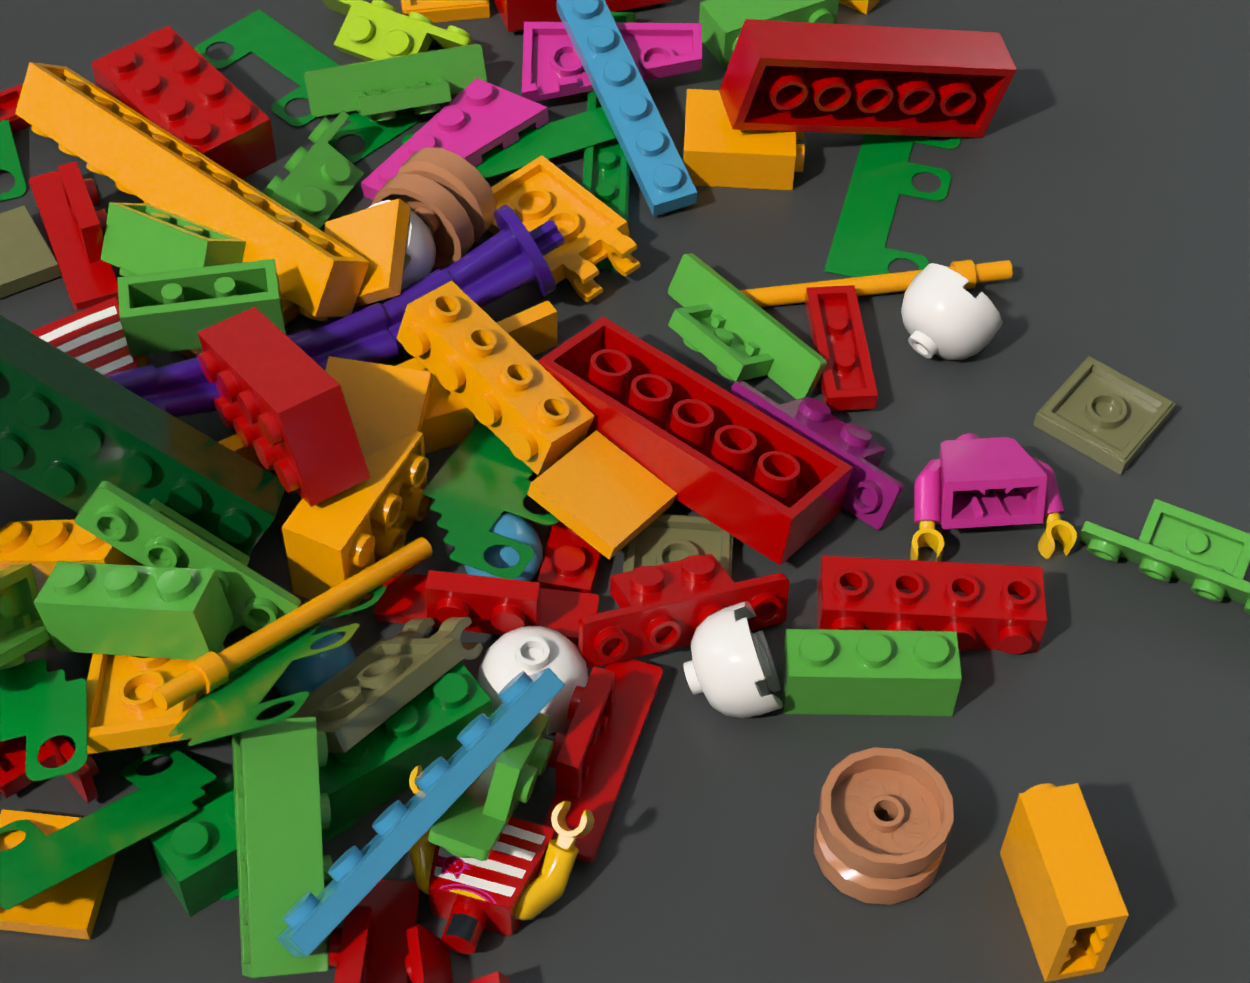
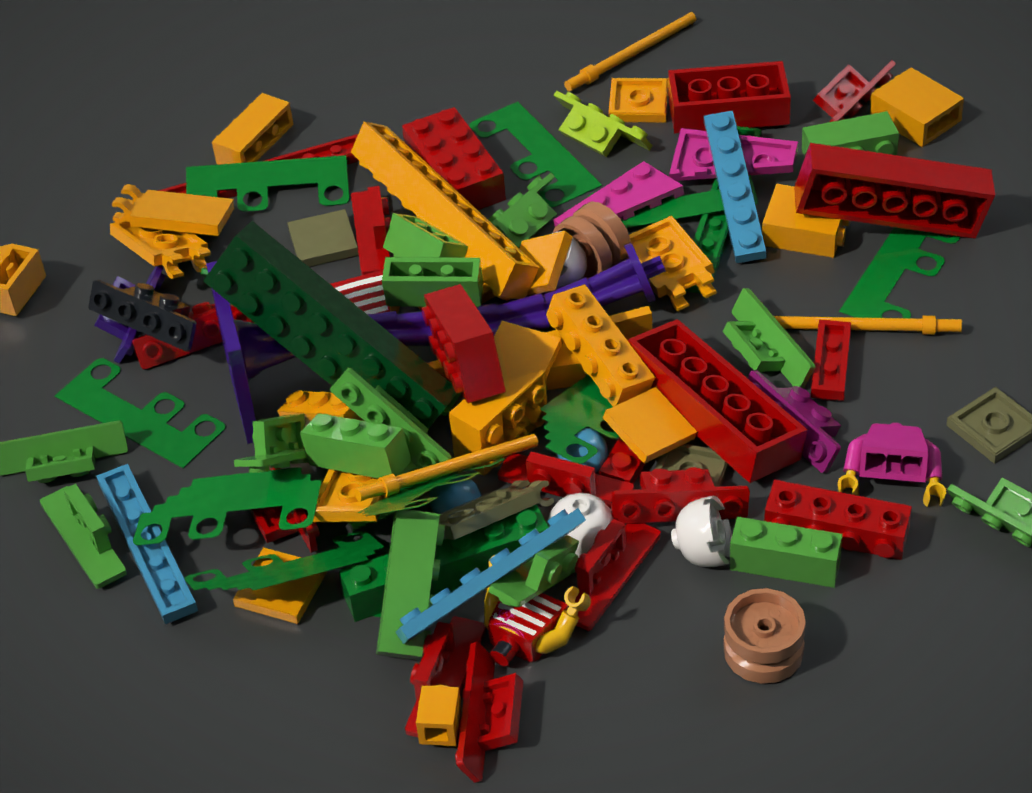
camera: 20 degrees right, 5 degrees down
(395, 83) = (590, 158): bright green bracket -> none
(946, 317) = (903, 349): white cylinder -> none
(1062, 882) = (861, 682): light orange brick -> none

